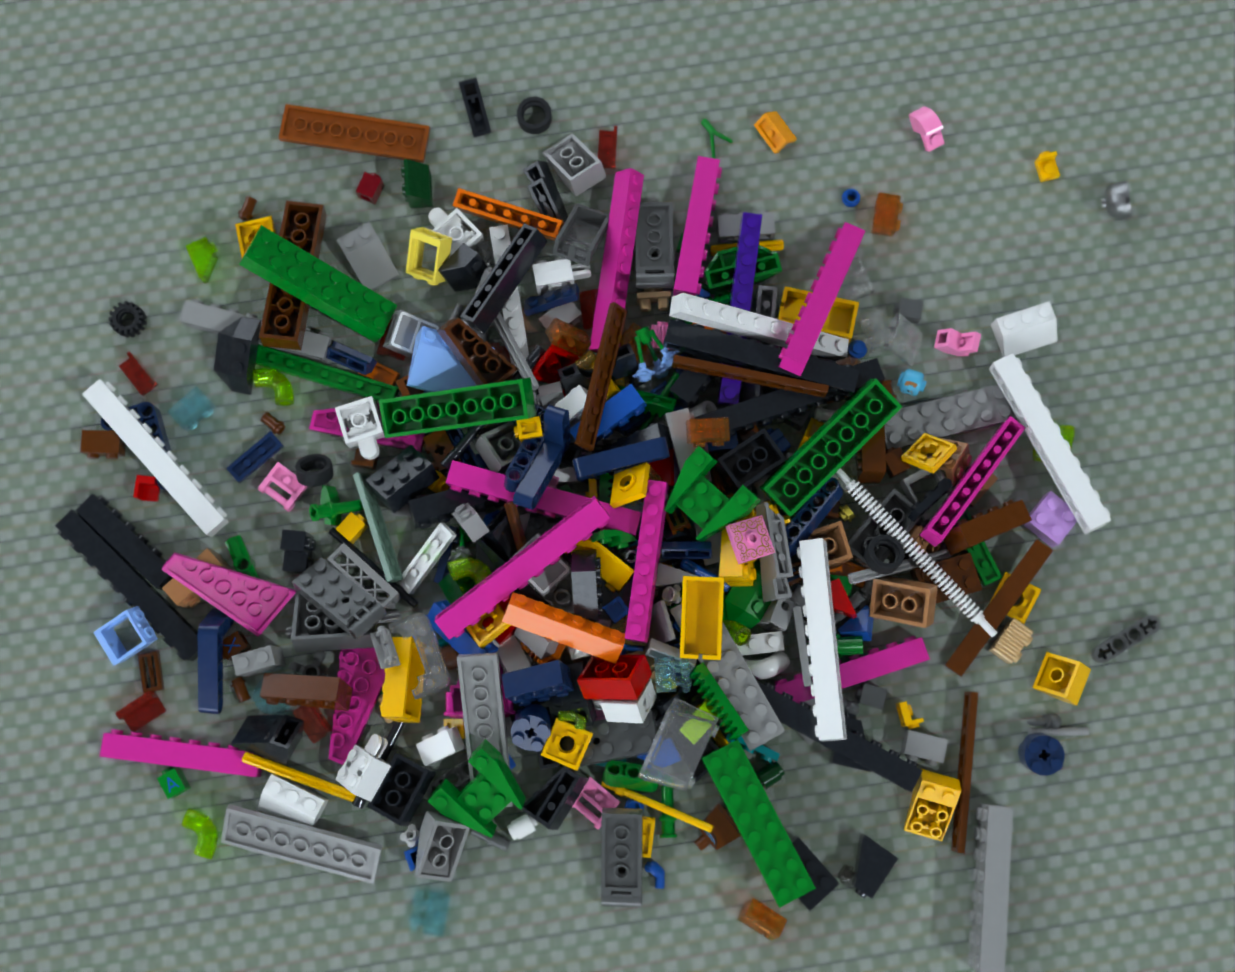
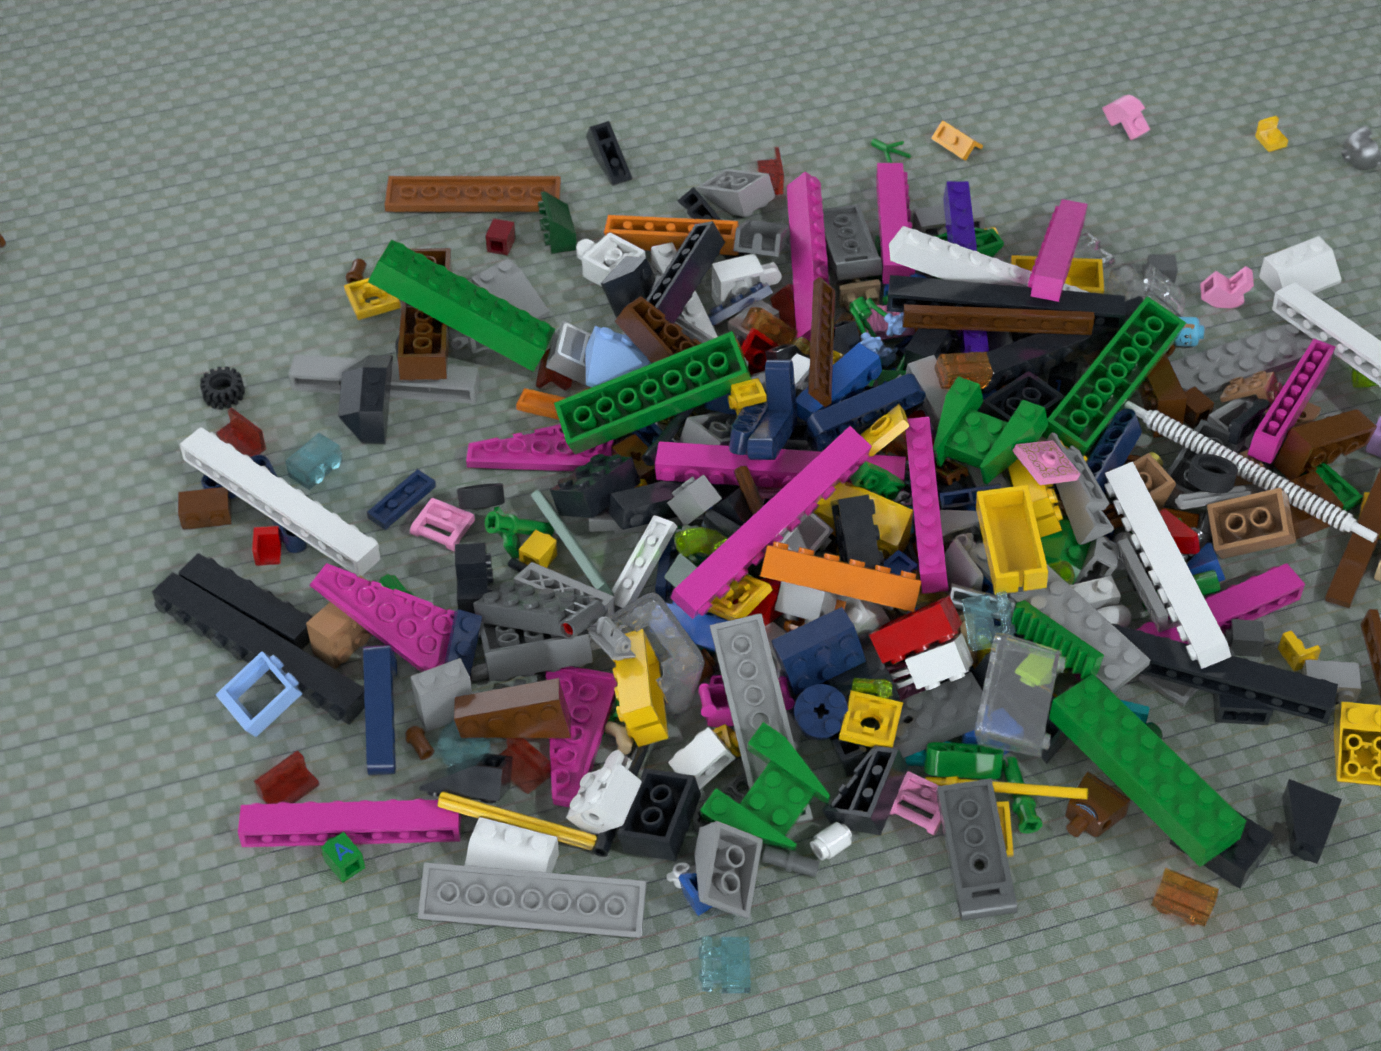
camera: 10 degrees left, 30 degrees down
(159, 676) = (288, 722): reddish brown tile -> none
(203, 257) = (308, 319): clear neon green slope -> none
(205, 831) = (394, 908): clear neon green cylinder -> none
(235, 644) = (403, 694): reddish brown brick -> none
(276, 426) = (415, 462): reddish brown pin -> none
(277, 382) = (418, 423): clear neon green cylinder -> none
(279, 617) = (463, 638): none -> dark blue plate
(324, 374) = (473, 409): green tile -> none
(351, 358) = (490, 386): dark blue piece -> none
(360, 462) = (543, 484): reddish brown panel -> none
(363, 424) = (534, 439): white brick -> none
(418, 238) = (568, 276): light yellow window -> none
(534, 102) = (679, 166): black tyre -> none
(658, 872) = (1020, 865): blue arm -> none
(853, 193) = (1061, 184): blue plate -> none
(886, 214) = (1106, 192): clear orange brick -> none
(929, 444) = (1231, 380): yellow piece -> none

